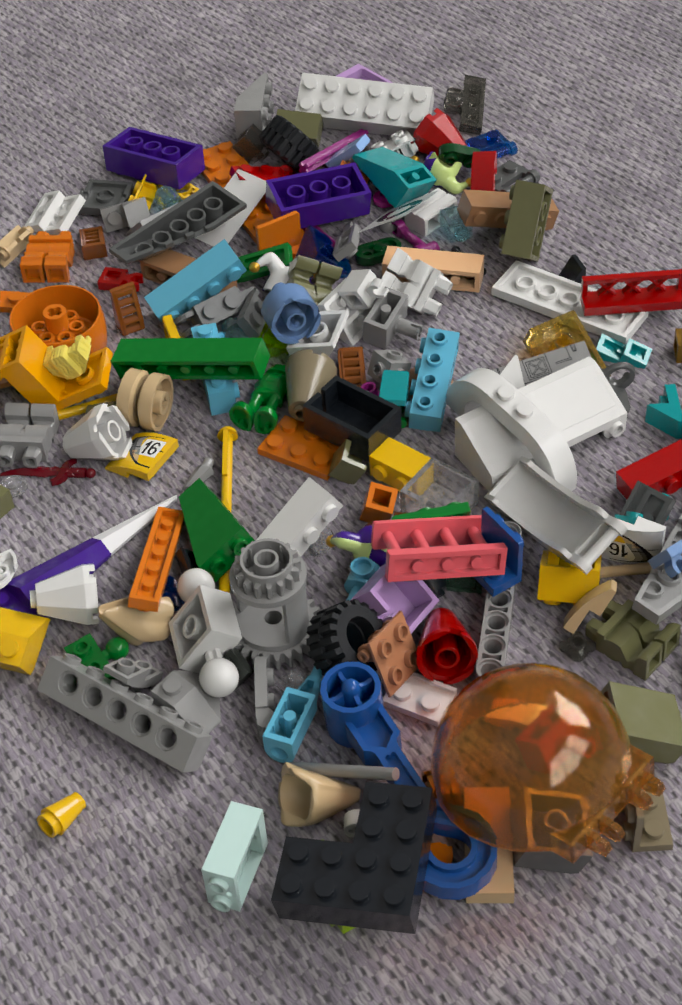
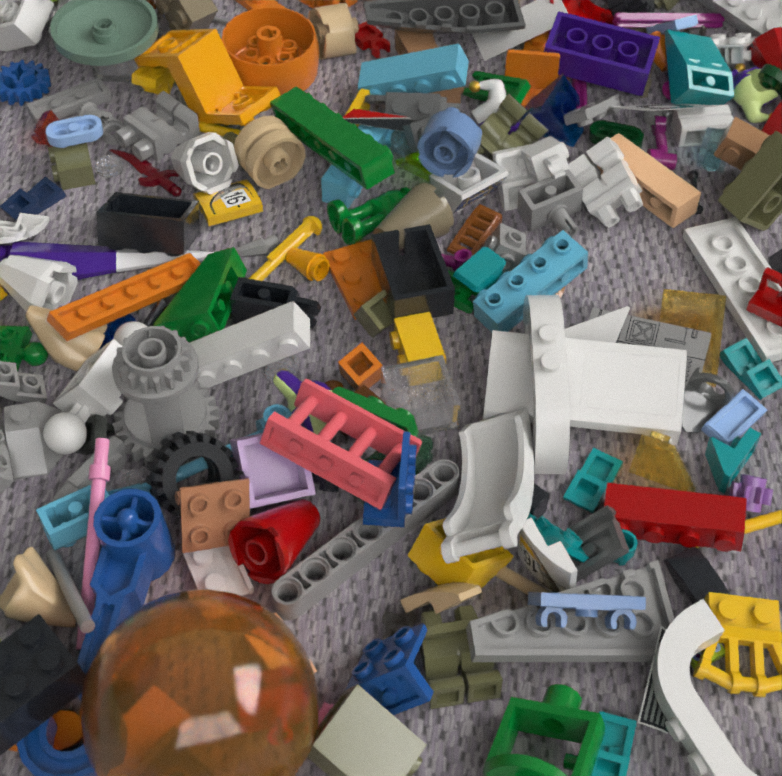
camera: 35 degrees right, 5 degrees up
(68, 361) = (238, 82): light yellow hair -> none
(94, 278) = (334, 30): none -> tan brick
(109, 502) = (148, 223): none -> black piece
(132, 322) = (339, 81): dark orange slope -> none
(210, 328) = (377, 119): none -> sticker
(255, 461) = (309, 264): none -> light orange cone
(261, 503) = (256, 297): none -> black hinge
(292, 679) = (99, 474): none -> bright pink bar
(598, 480) = (590, 482): none -> teal slope
(609, 659) = (389, 670): none -> blue bracket
(632, 439) = (661, 462): none -> clear yellow slope
(643, 389) = (734, 418): none -> light blue tile

